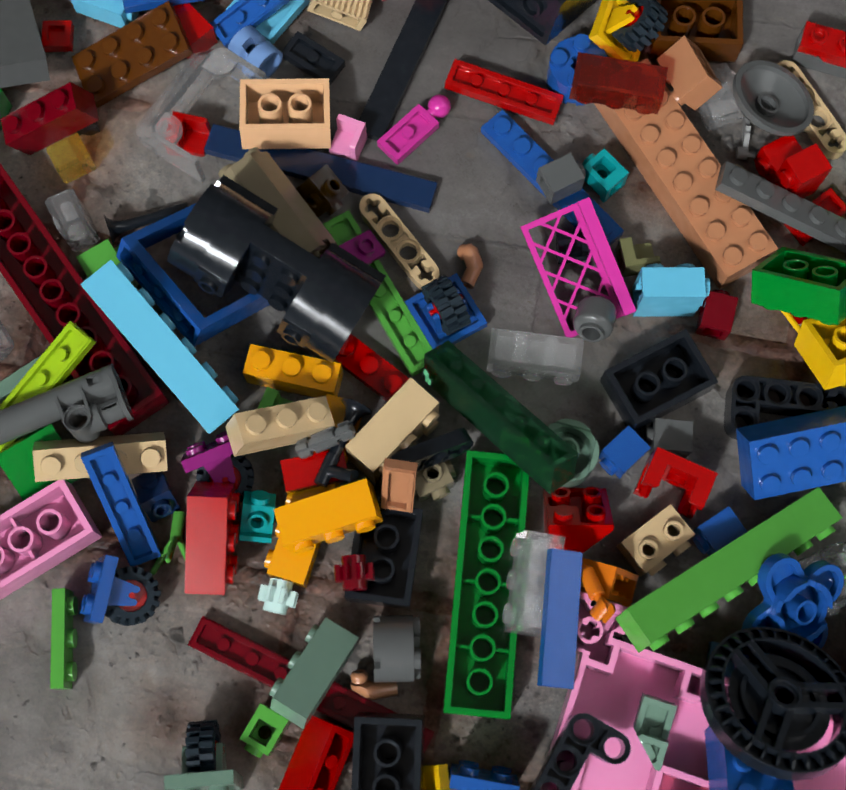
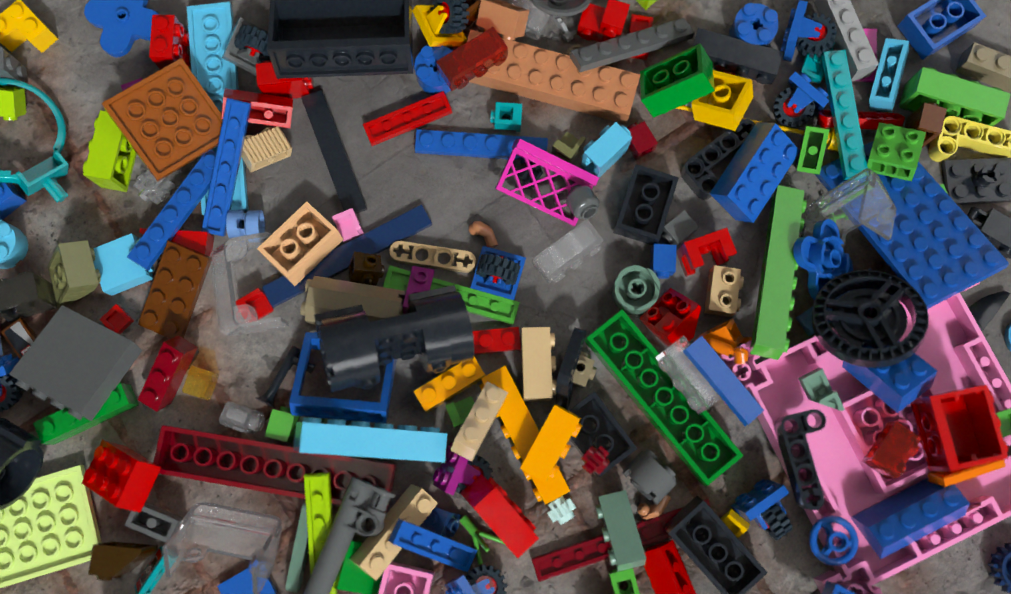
camera: 45 degrees left, 5 degrees up
(257, 516) = (510, 479): teal brick -> none
(300, 473) = (517, 425): red tile -> none
(312, 58) = (281, 197): black plate -> none
(325, 439) = (510, 404): dark grey axle -> none
(329, 467) = (525, 418): black piece -> none
(398, 485) = (574, 391): nougat tile -> none
(414, 129) = (378, 185): dark pink plate -> none
(500, 417) = (586, 303): clear green brick -> none
(561, 178) = (489, 140): dark grey brick -> none
(718, 531) = (749, 256): blue brick -> none

